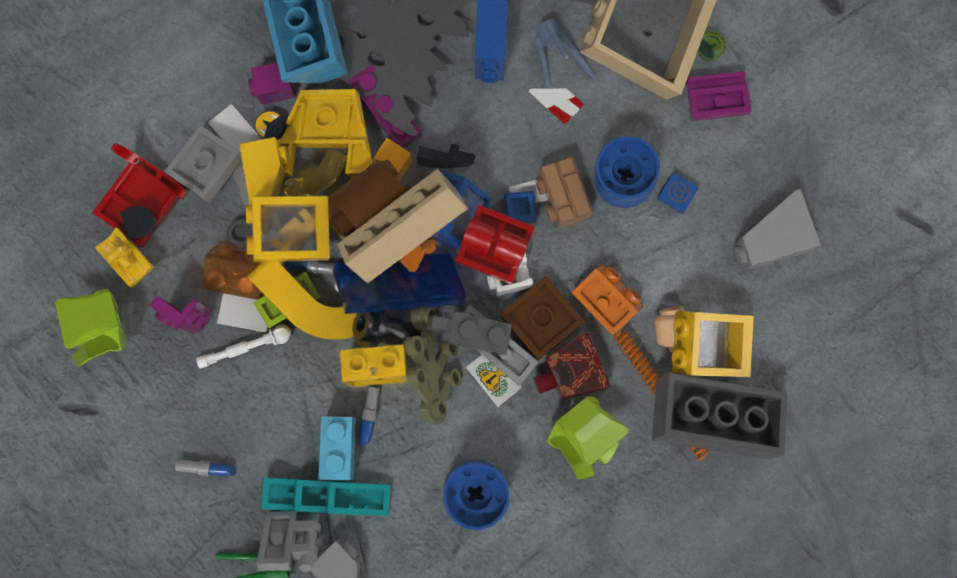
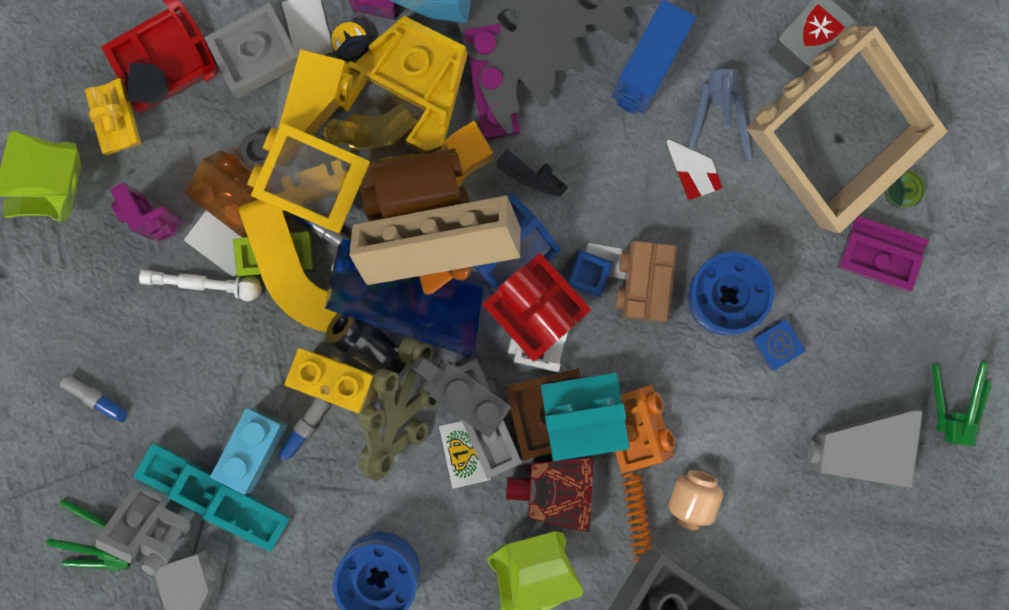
camera: 20 degrees right, 5 degrees up
(567, 306) = (585, 417): none -> teal bracket
(712, 344) = (728, 542): yellow window -> none
(833, 188) = (962, 427): none -> green plant

